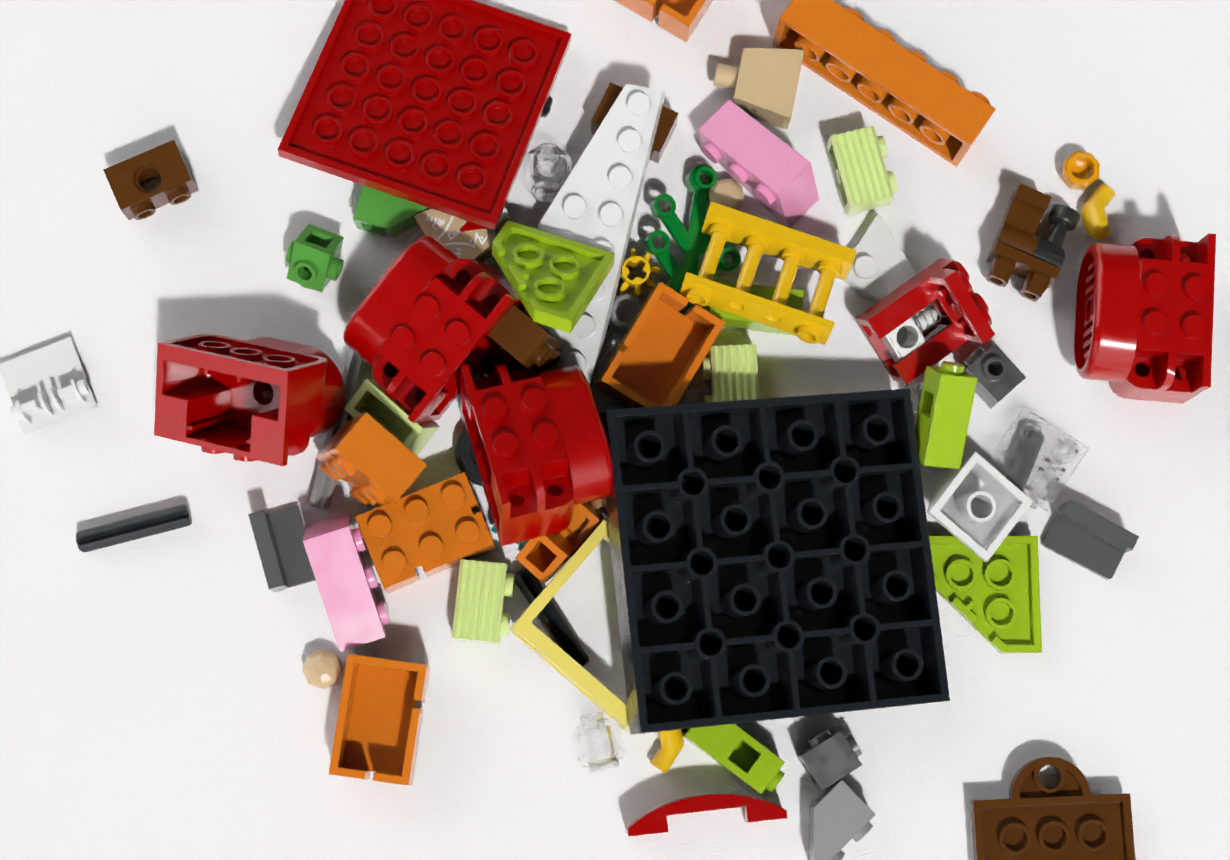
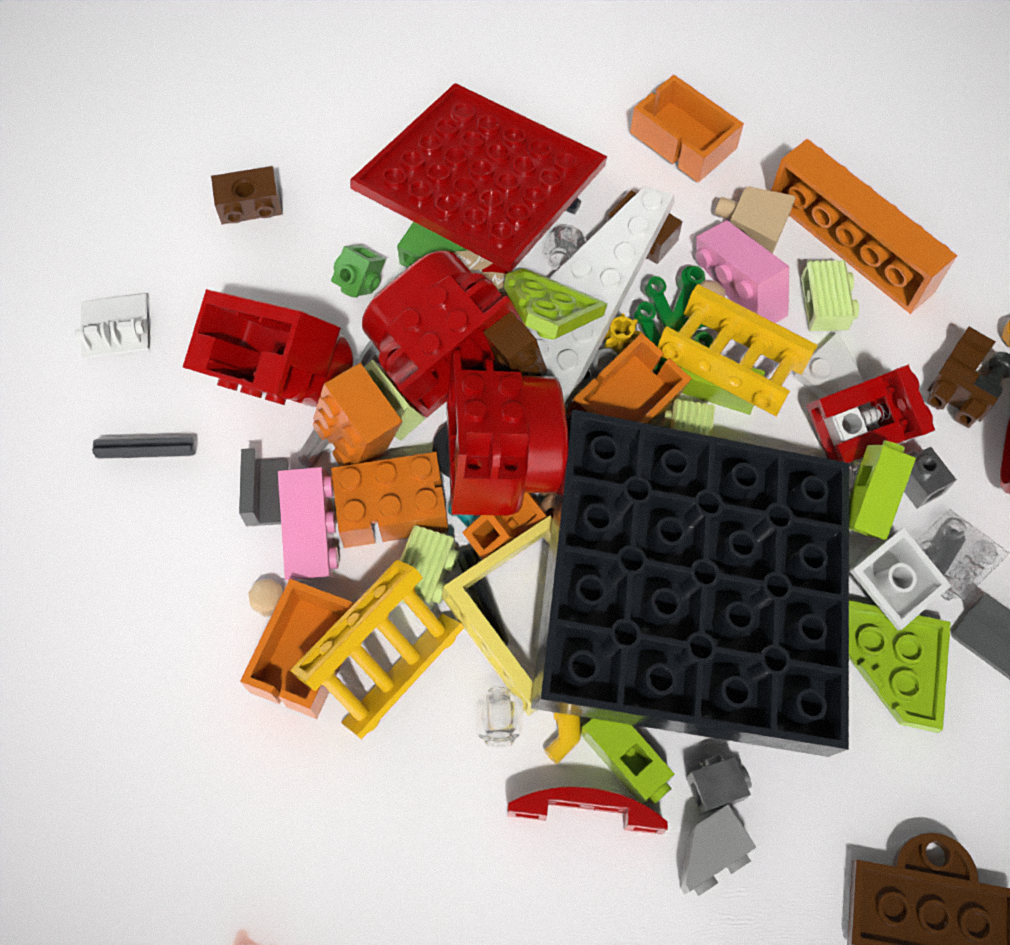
camera: 20 degrees right, 15 degrees down
(434, 691) = (346, 640): none -> yellow fence

